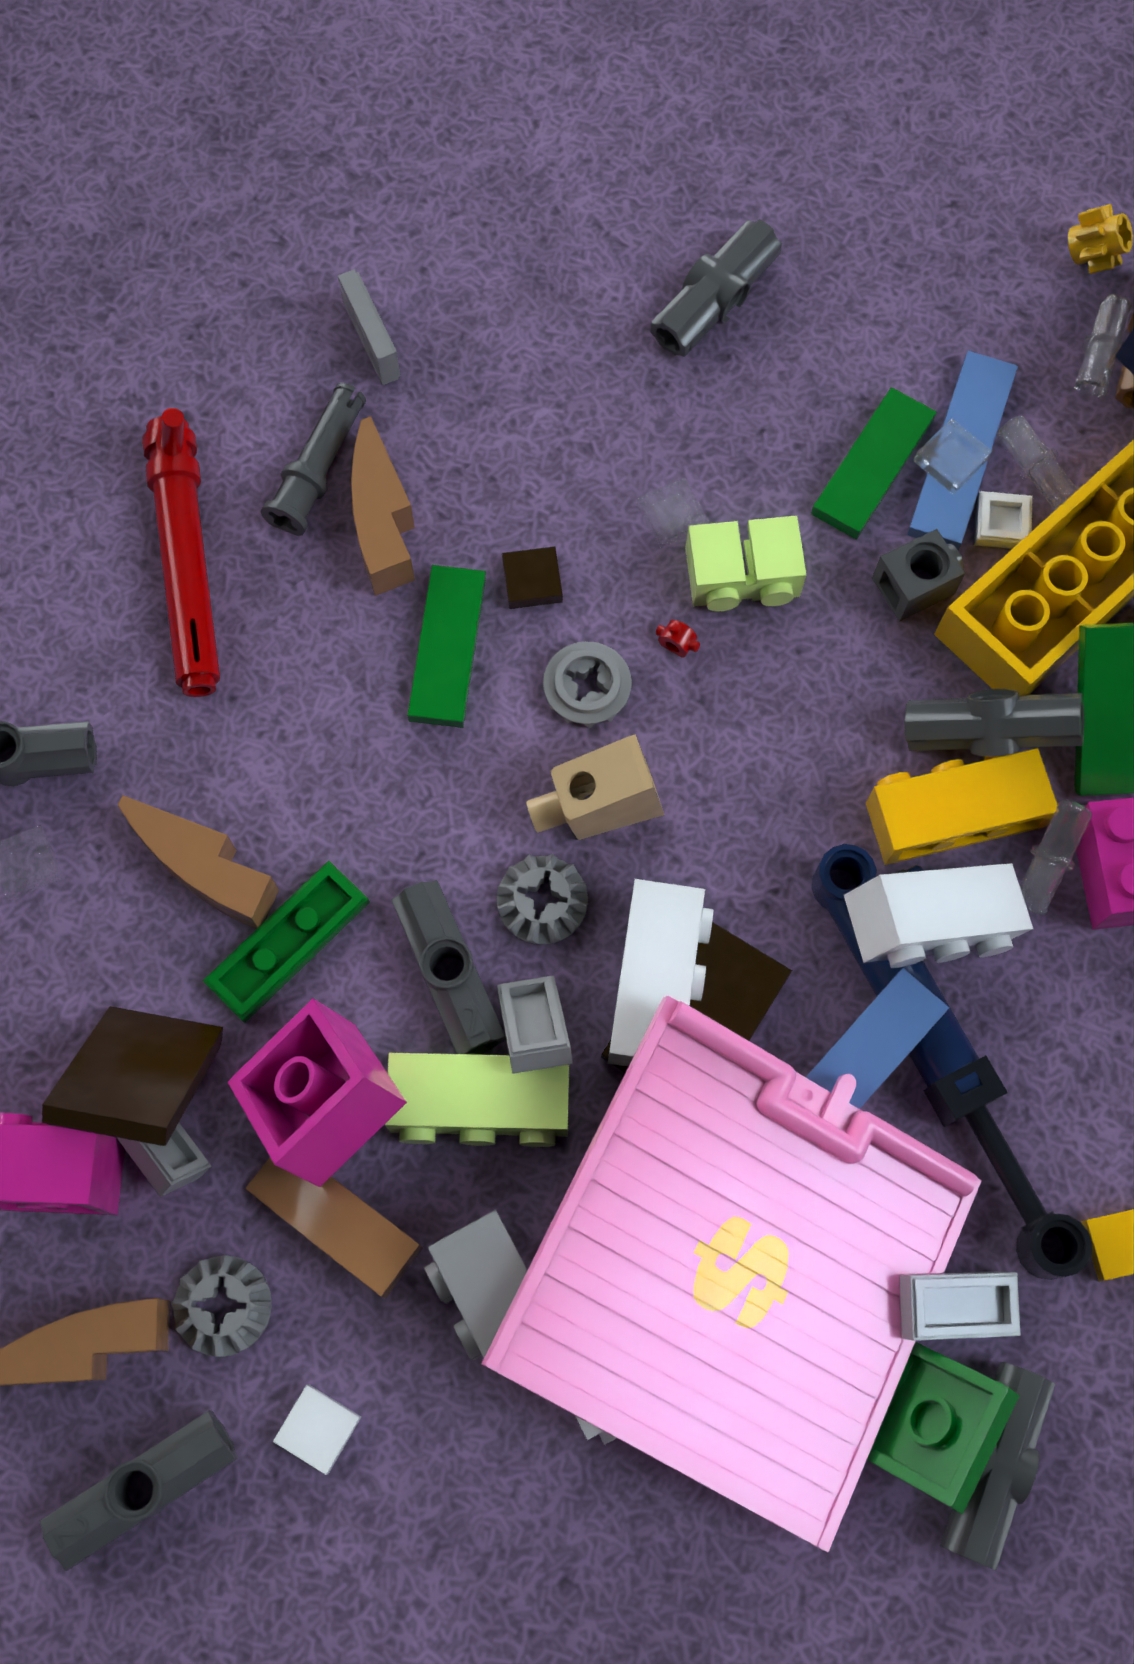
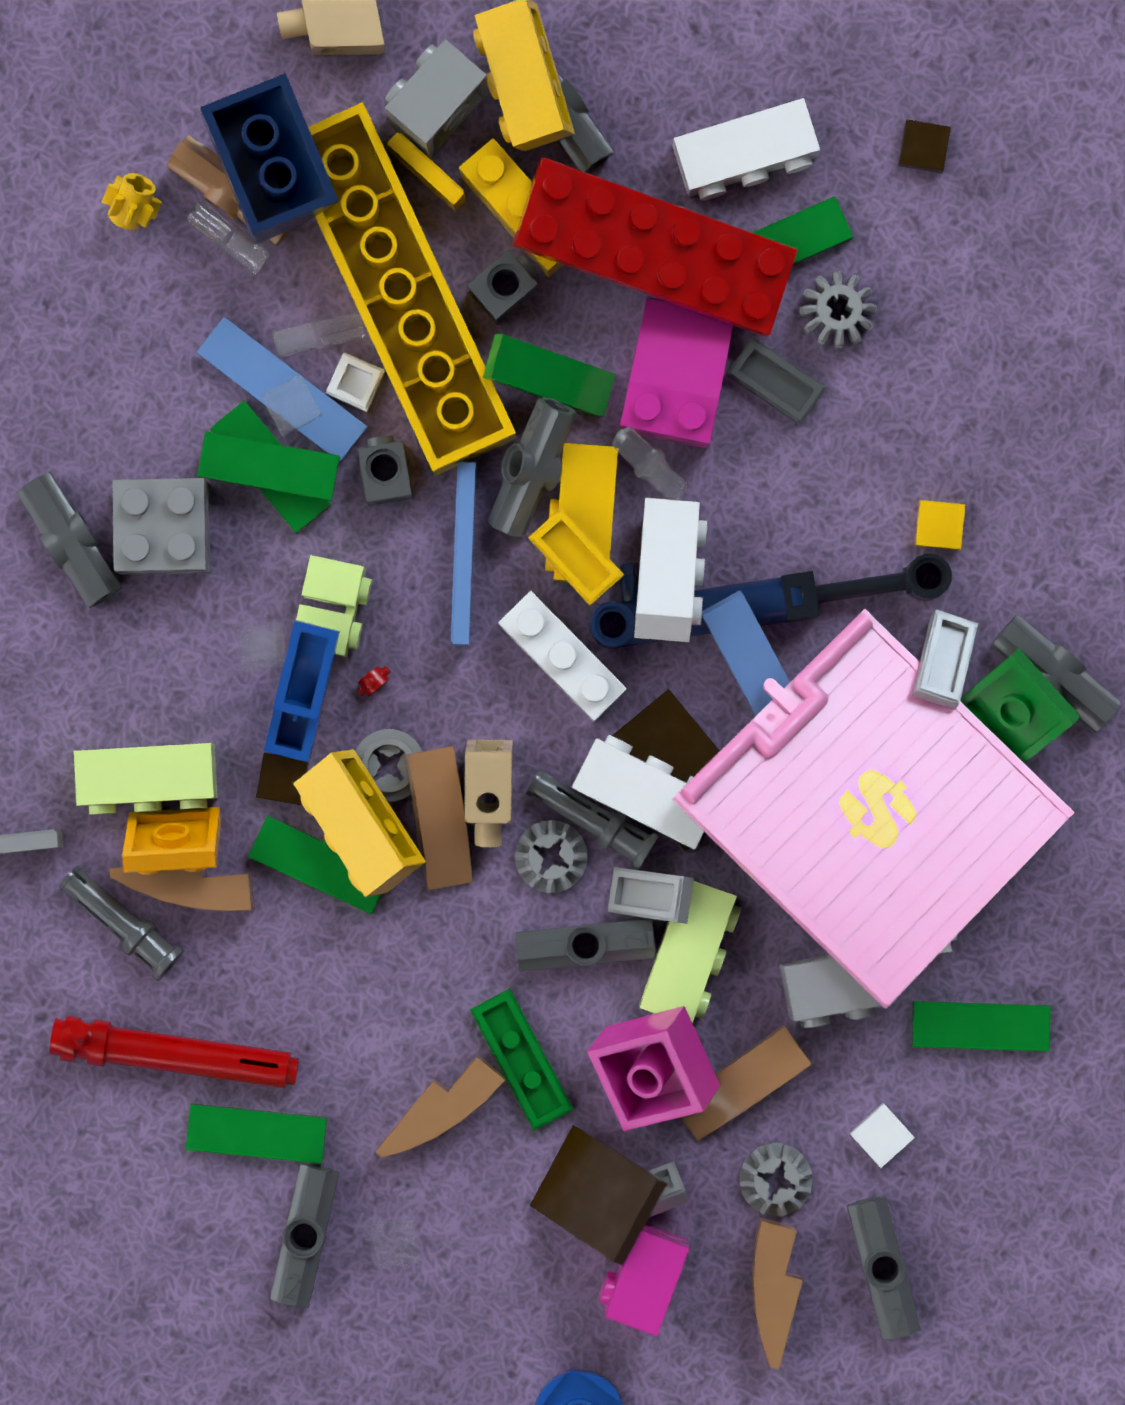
camera: 70 degrees left, 15 degrees up
(115, 672) = (256, 1133): none -> green tile
(422, 469) = (172, 840): none -> light orange plate
(486, 433) = (145, 777): none -> yellowish green brick
(501, 1520) = (981, 1026): none -> green tile
(508, 660) = (358, 823): none -> yellow brick
(524, 760) = (439, 817): none -> medium nougat slope
(598, 955) = (611, 829): none -> dark grey pin
(639, 554) = (302, 691): none -> blue slope
(767, 365) = (161, 526): none -> light grey brick
(784, 830) = (562, 656): none -> white brick
(861, 686) = (463, 554): none -> medium blue tile
(876, 453) = (268, 466): none -> green tile
(912, 801) = (576, 556): none -> yellow tile

